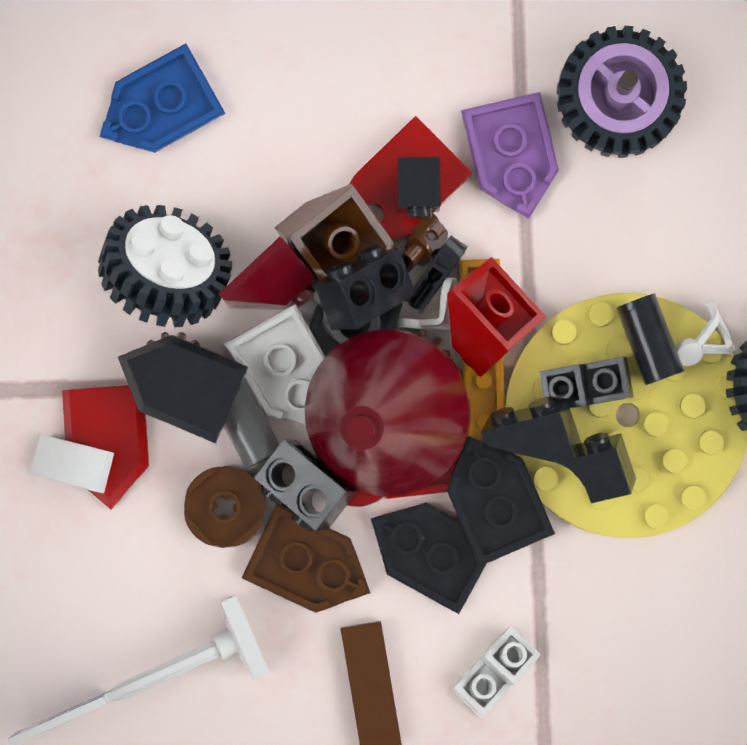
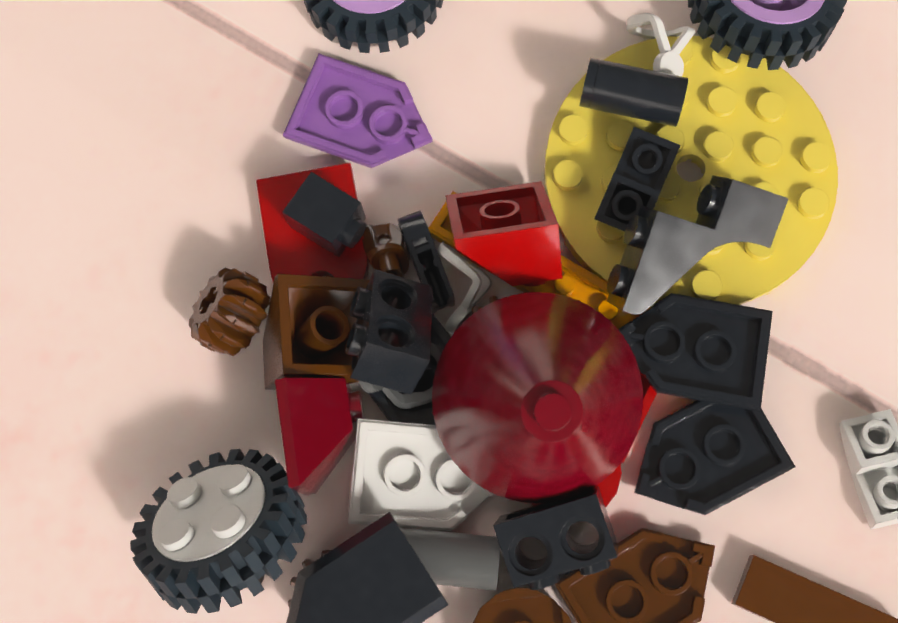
camera: 50 degrees left, 10 degrees down
(161, 103) = (58, 423): blue tile -> none
(309, 167) = (229, 311): none -> reddish brown gear

